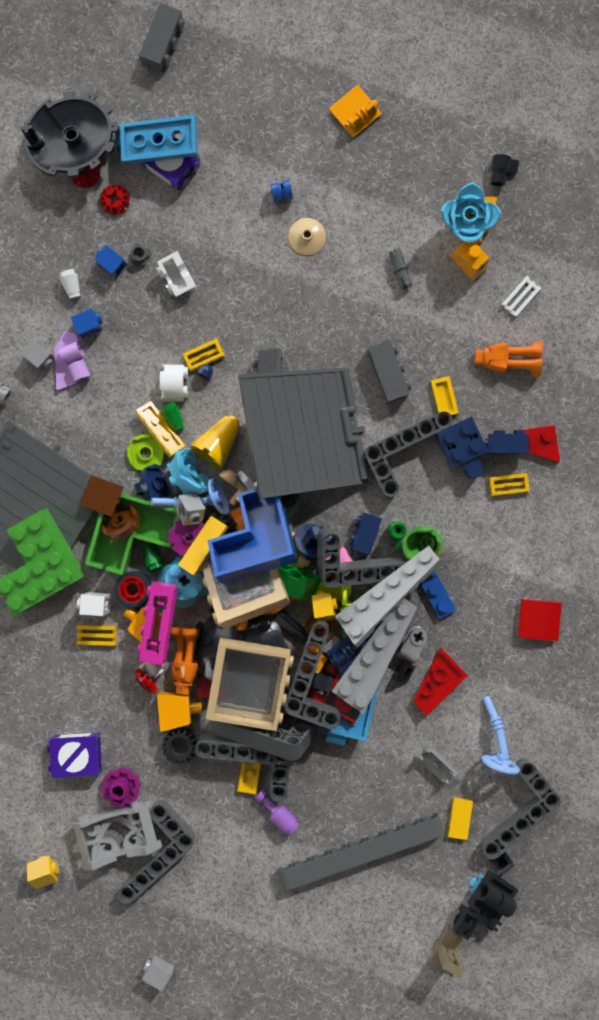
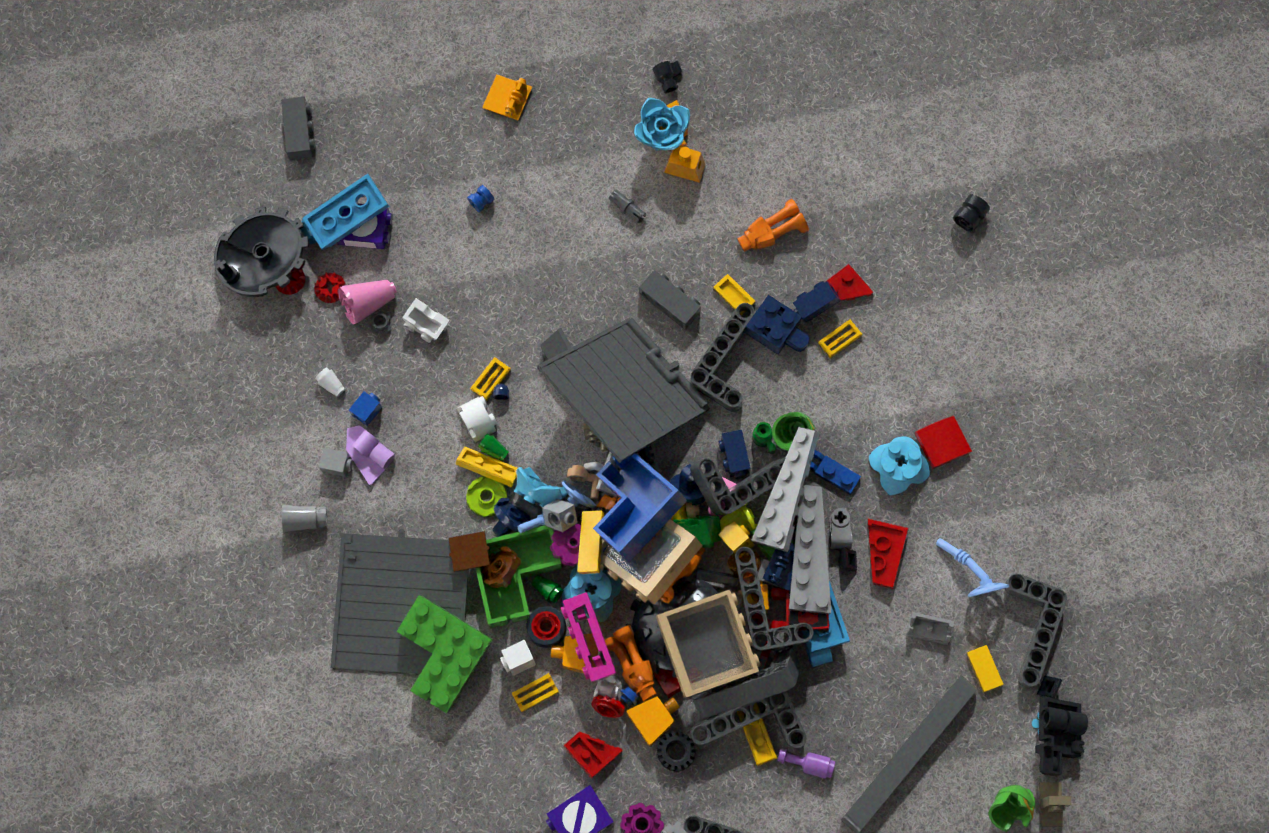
camera: 20 degrees left, 15 degrees down
(110, 261) = (357, 342): blue brick -> none
(113, 708) = (591, 753): none -> red wing
(137, 226) = (365, 298): none -> bright pink cone
(167, 682) = (629, 696): none -> blue plate
(217, 442) = (548, 448): yellow cone -> none
(304, 245) = (526, 233): tan dish -> none
(322, 682) = (776, 610): black slope -> none
(416, 935) = (1008, 809): none -> bright green helmet
(482, 608) = (896, 478): none -> medium azure brick
(531, 284) = (753, 156): white tile -> none

